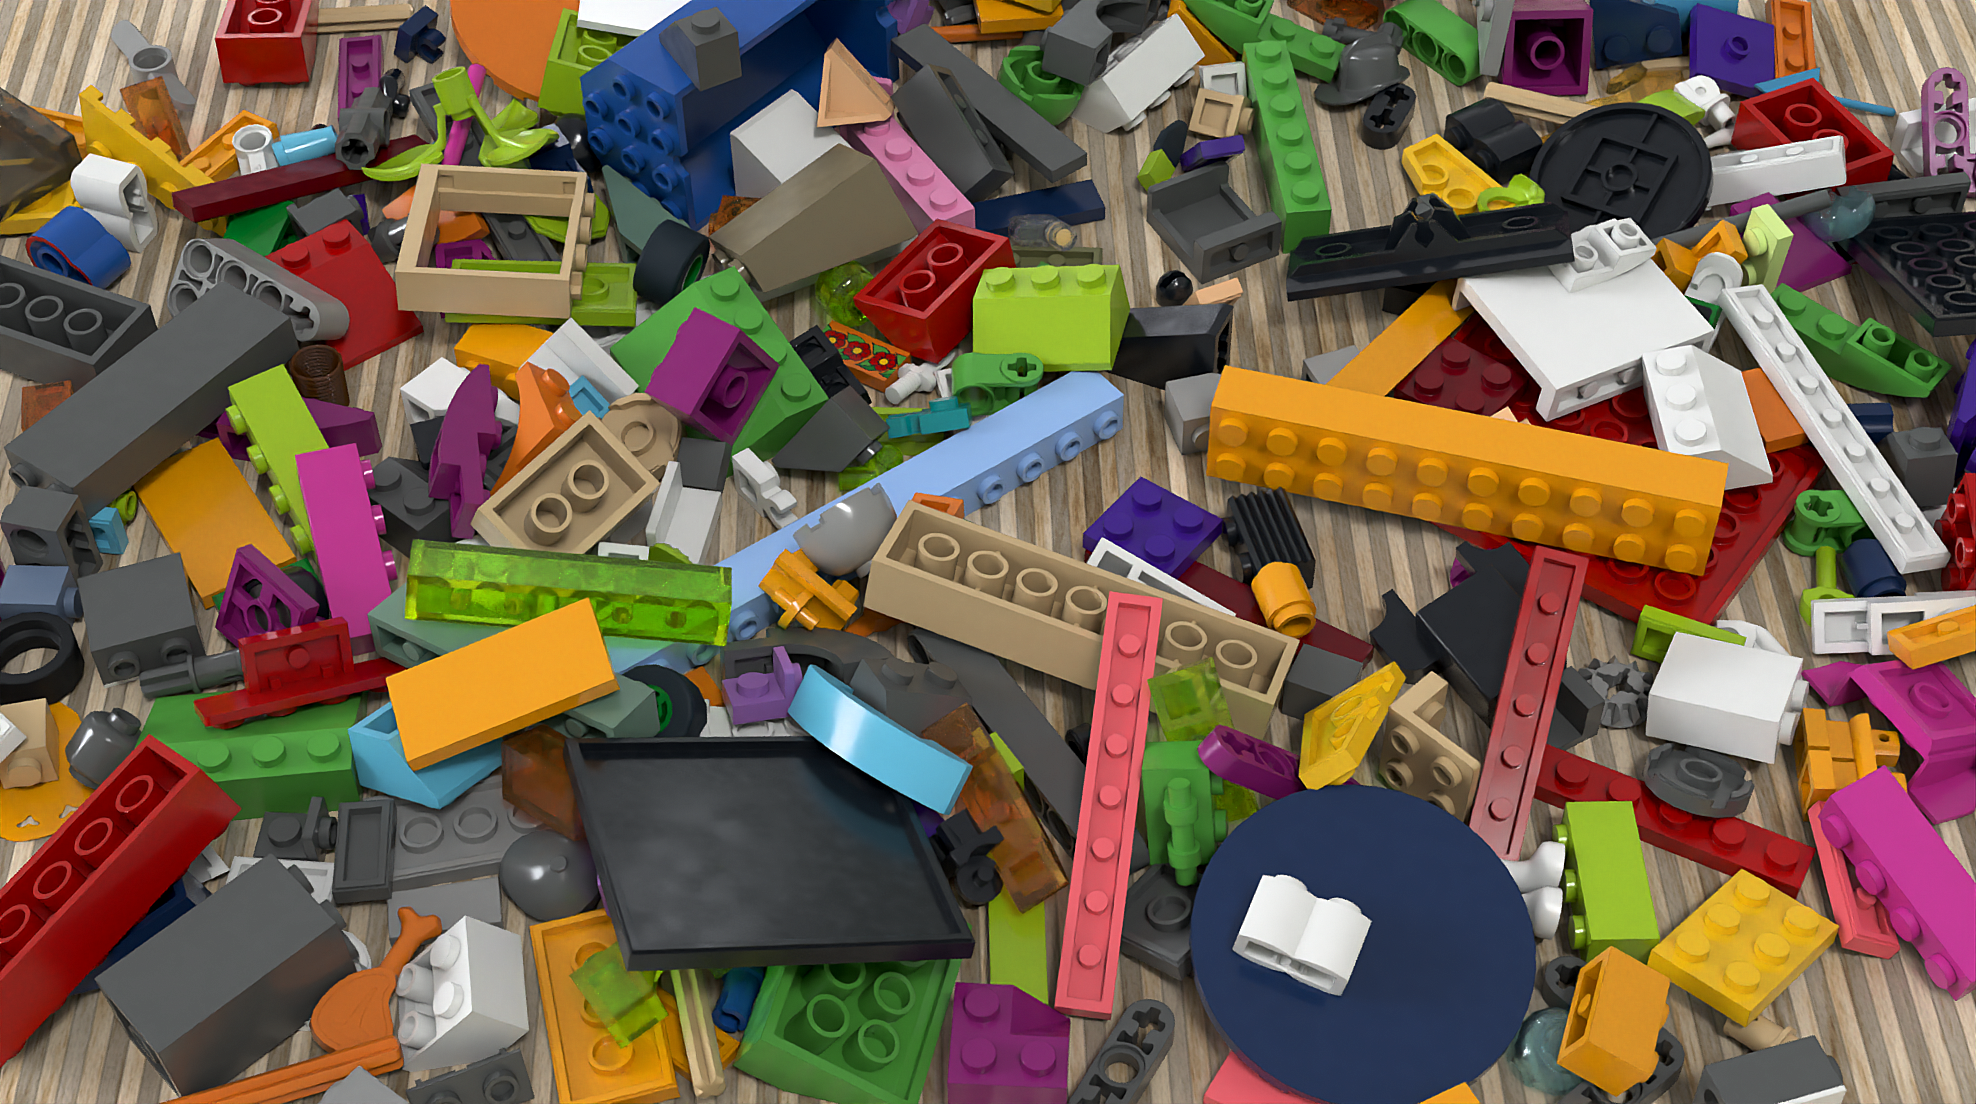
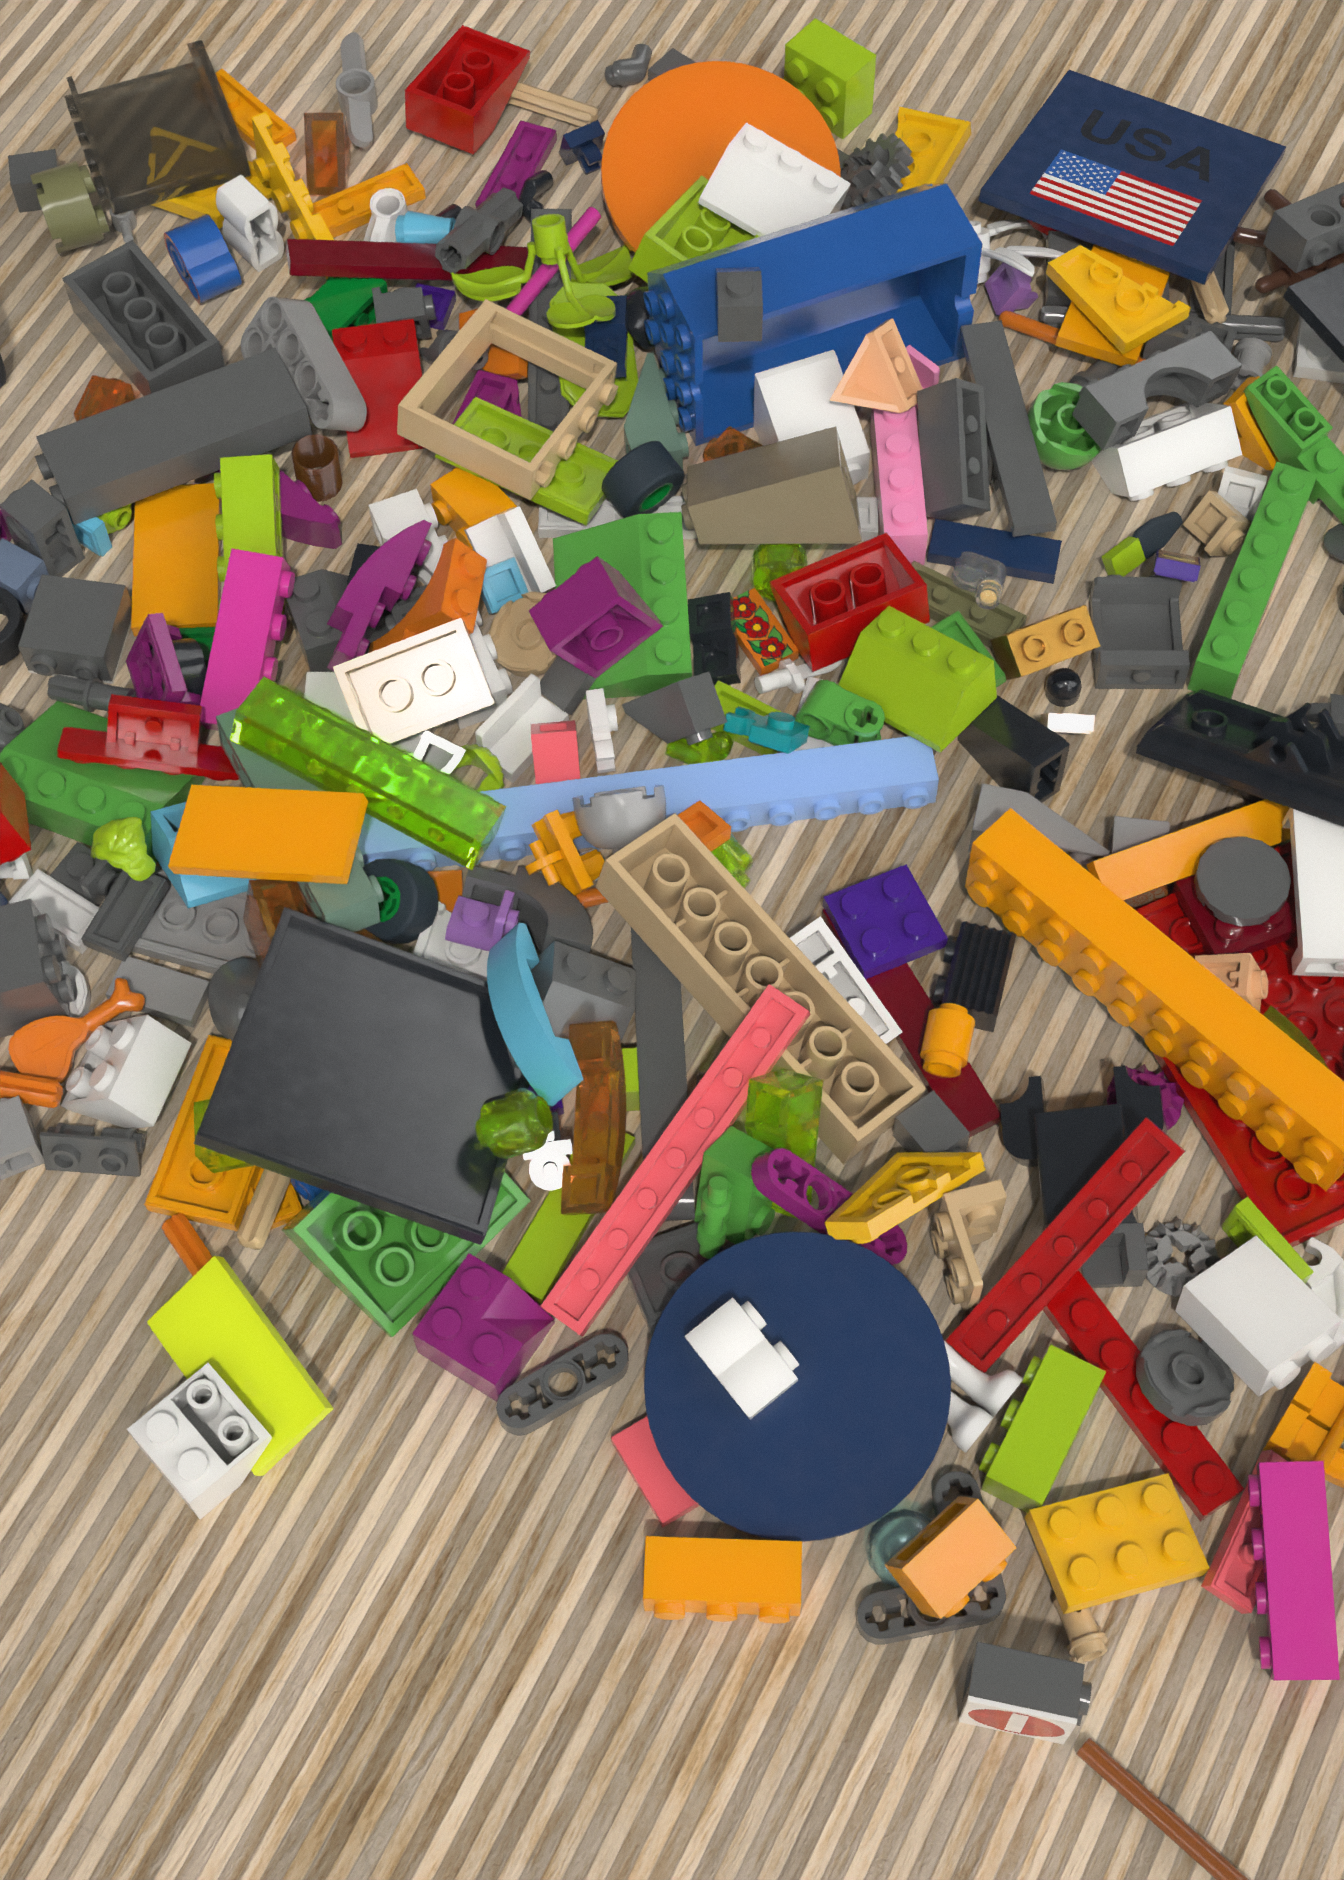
camera: 30 degrees right, 15 degrees up
(336, 777) = (124, 847): none -> lime piece
(734, 521) = (555, 751): none -> coral brick
(935, 827) = (514, 1123): none -> clear neon green head
(1147, 247) = (1045, 642): none -> brick
(1457, 357) = (1242, 881): none -> dark grey tile

